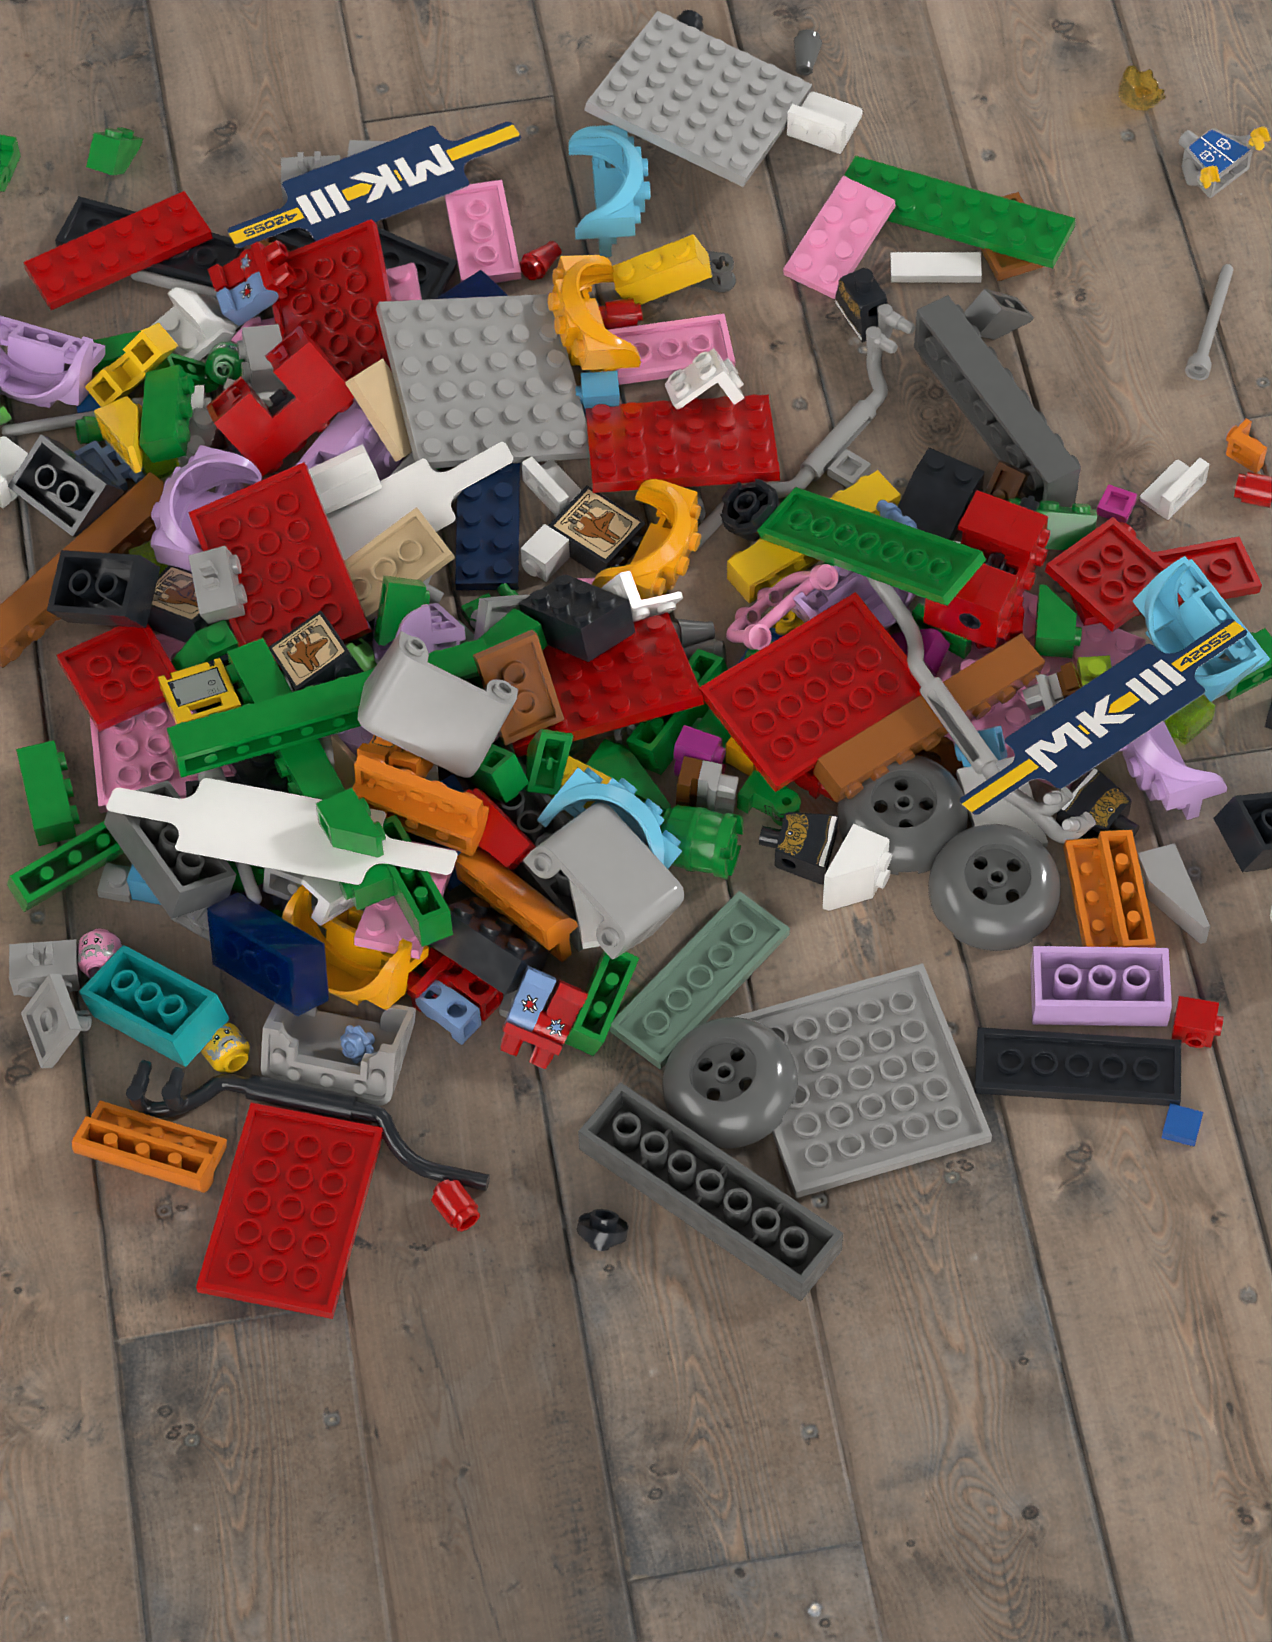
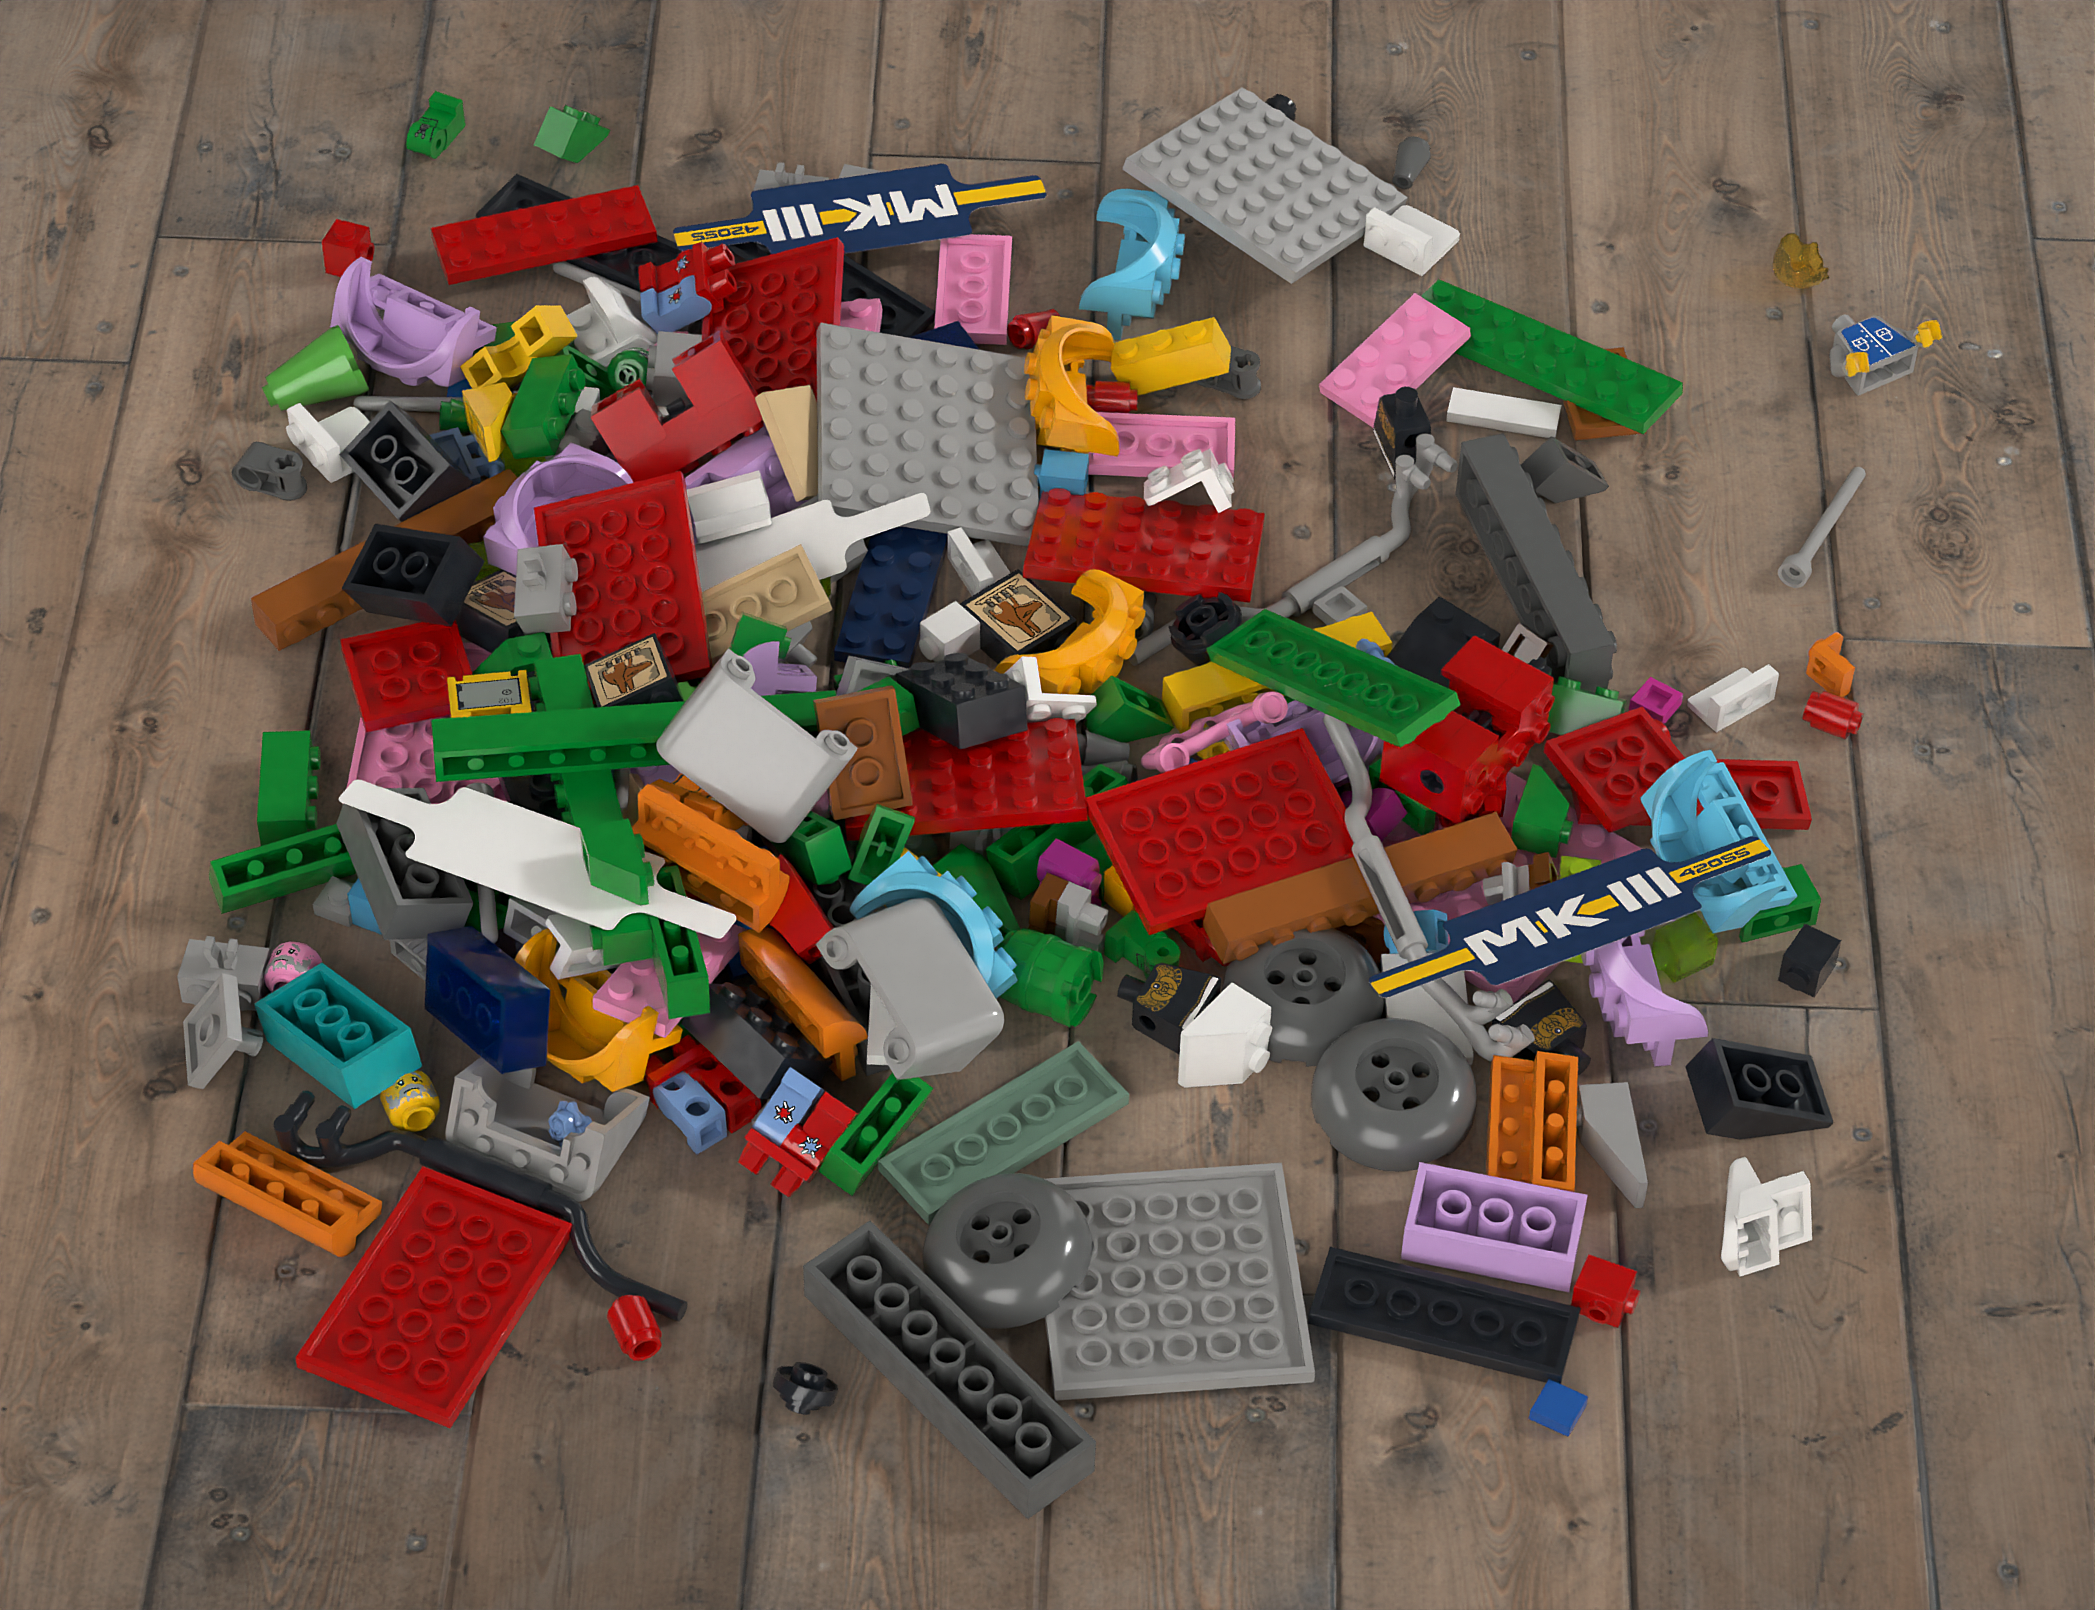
camera: 10 degrees right, 10 degrees down
(704, 595) = (1127, 713): none -> green slope

